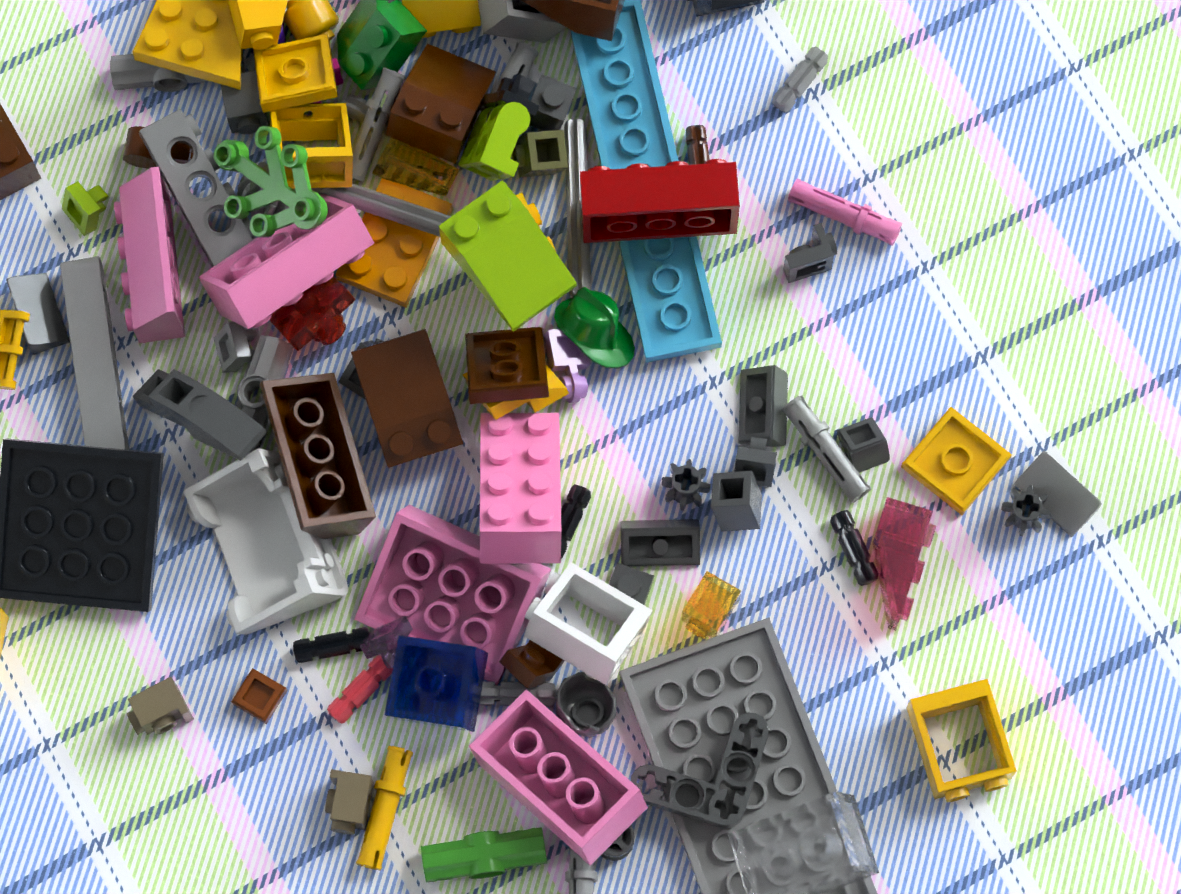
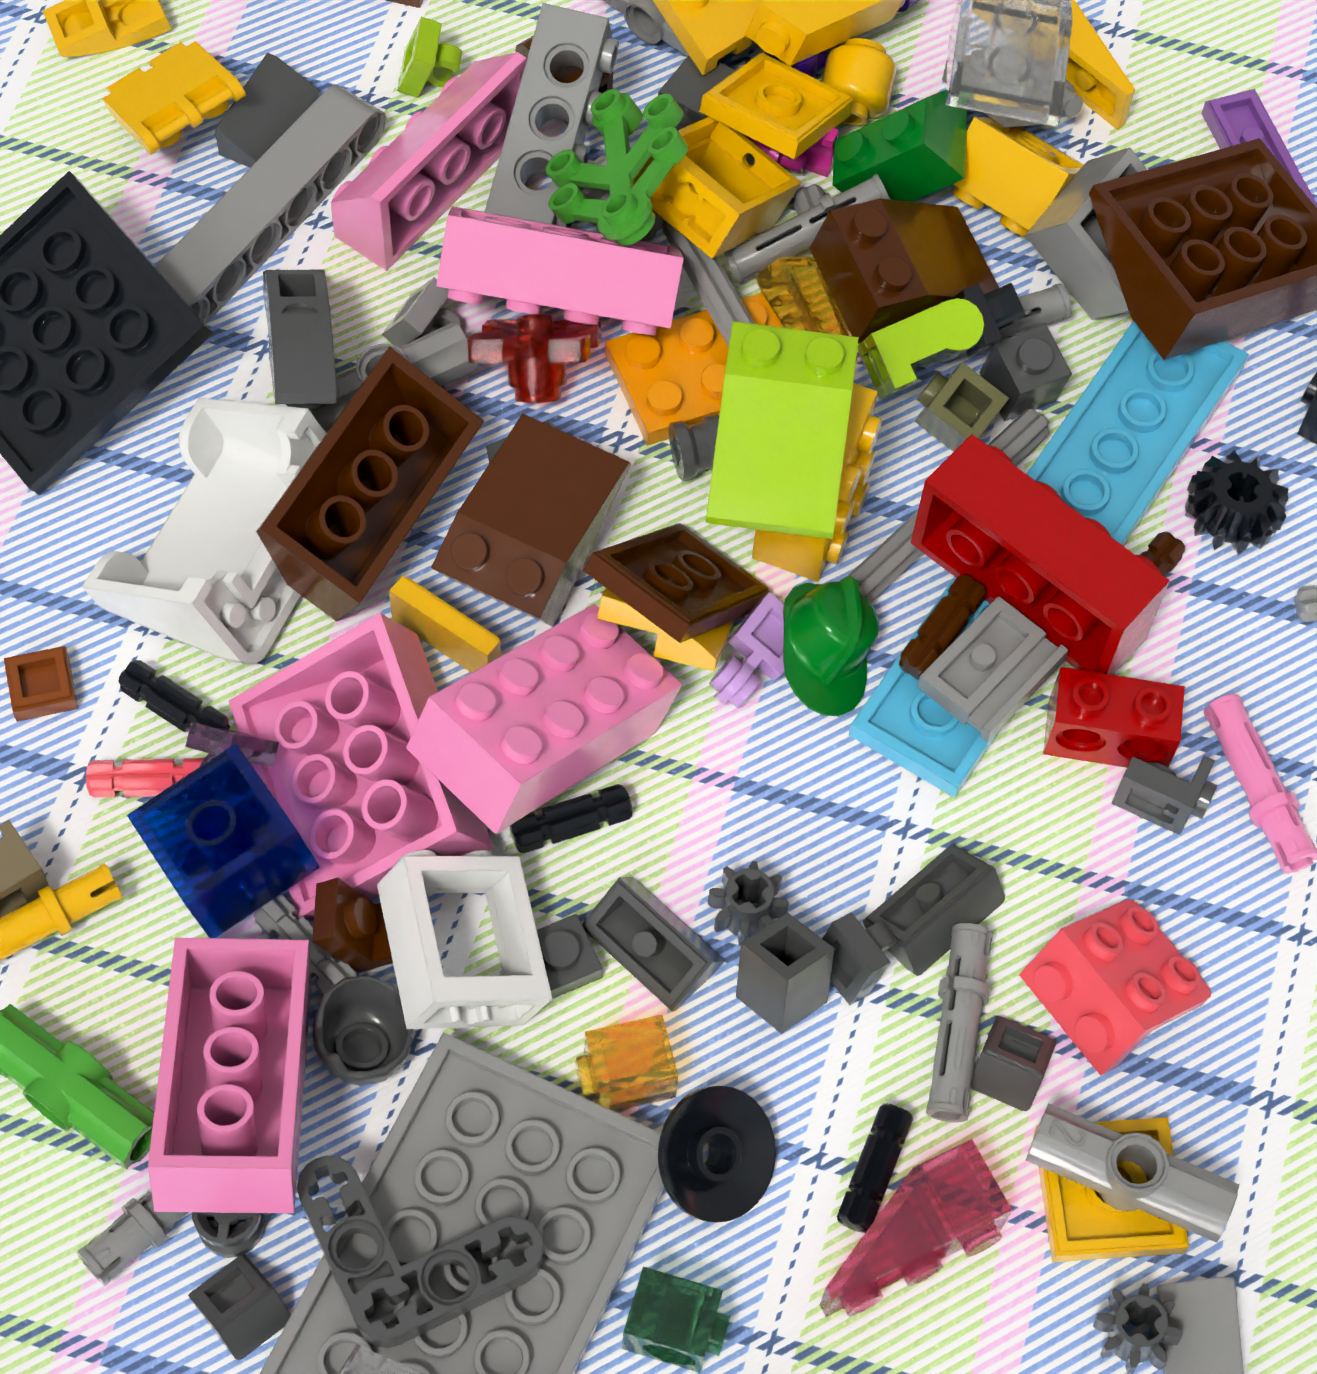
camera: 40 degrees right, 10 degrees down
(418, 489) = (442, 625): none -> yellow tile
(437, 287) = (693, 445): none -> dark grey wheel
(641, 272) = (942, 625): none -> reddish brown axle
(656, 868) = (241, 1306): none -> dark grey slope
(685, 272) = (992, 668): none -> light grey plate
(705, 67) = (1236, 502): none -> black gear
(756, 244) = (1113, 718): none -> red brick
(787, 607) = (738, 1160): none -> black dish
(841, 693) = (675, 1320): none -> clear green brick
(873, 367) = (1114, 982): none -> coral bracket
(985, 436) = (1173, 1188): none -> light grey piece

